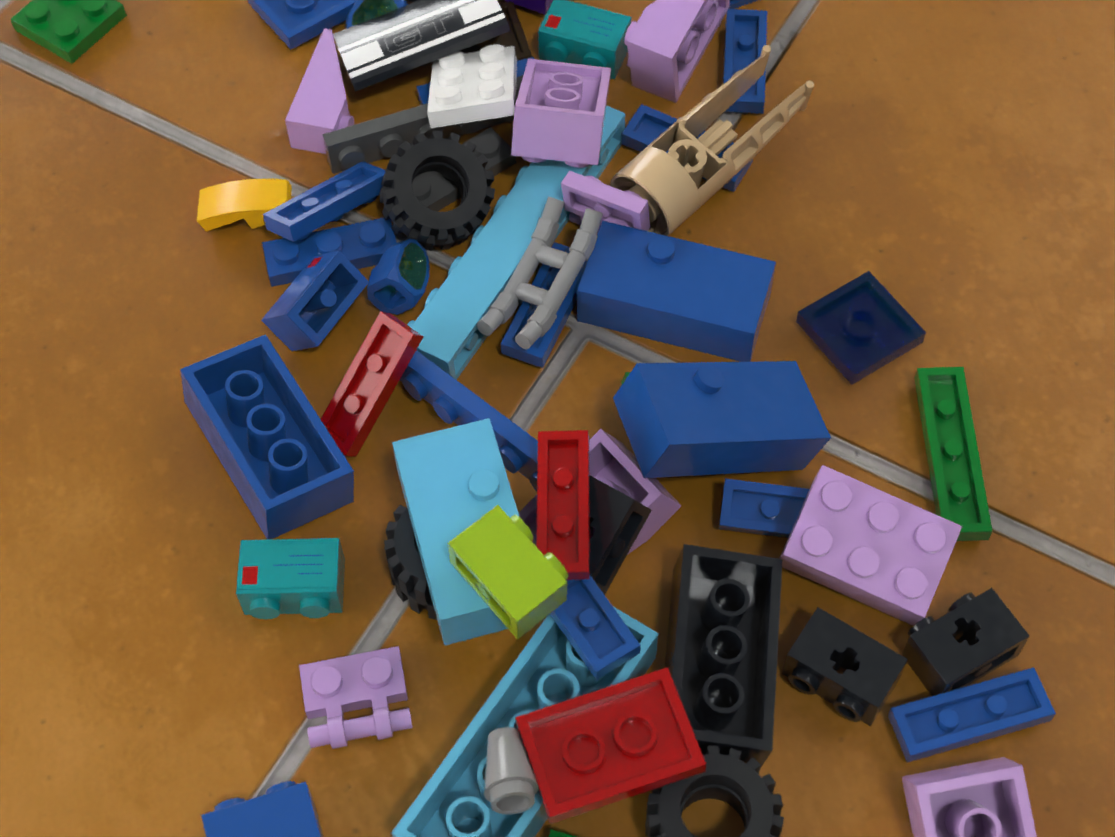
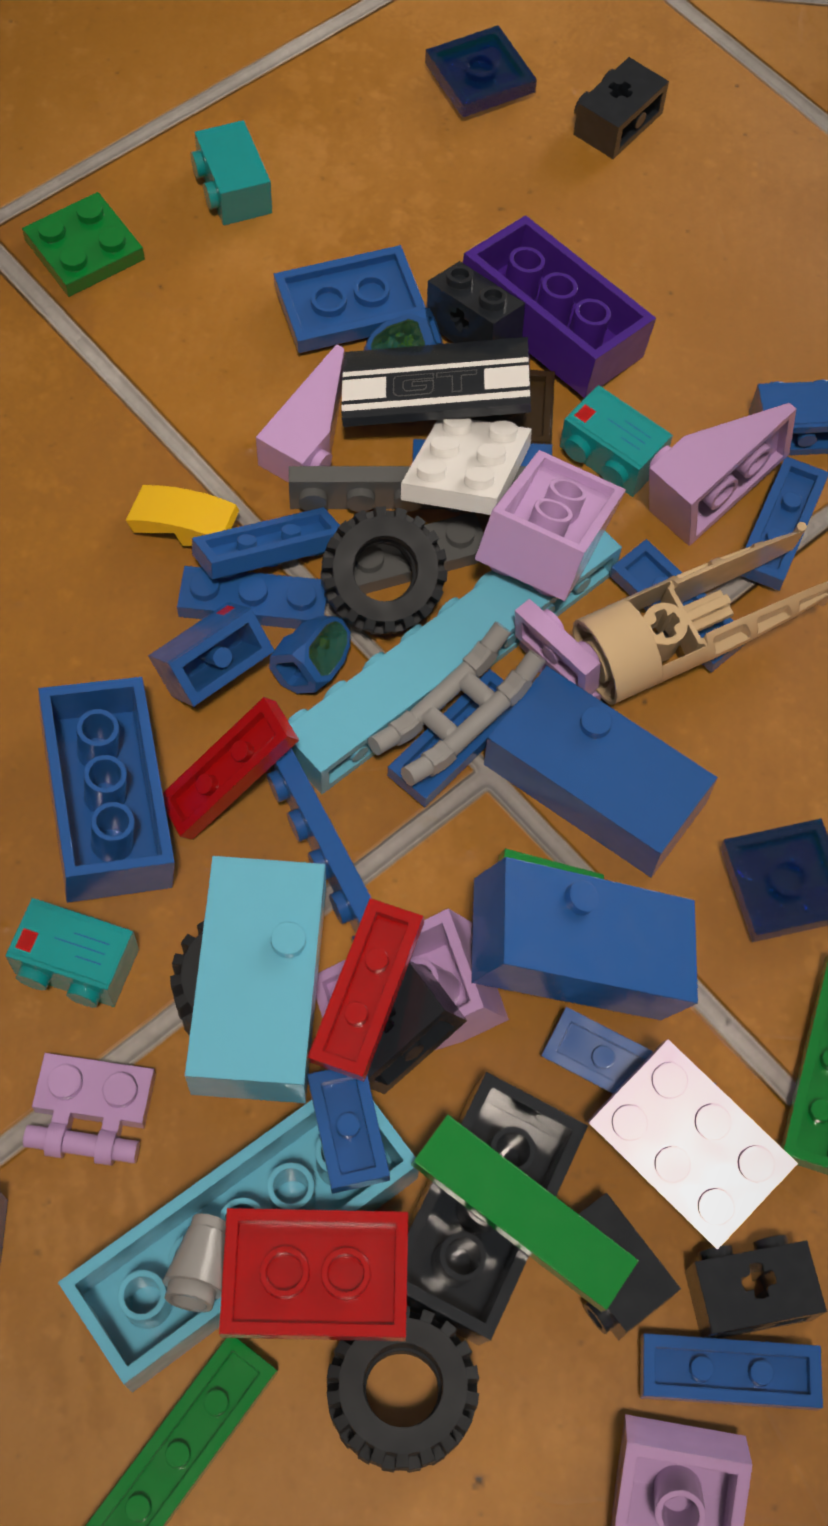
camera: 15 degrees right, 5 degrees up
(509, 570) = (272, 1050): lime brick -> none
(760, 640) = (525, 1213): none -> green tile

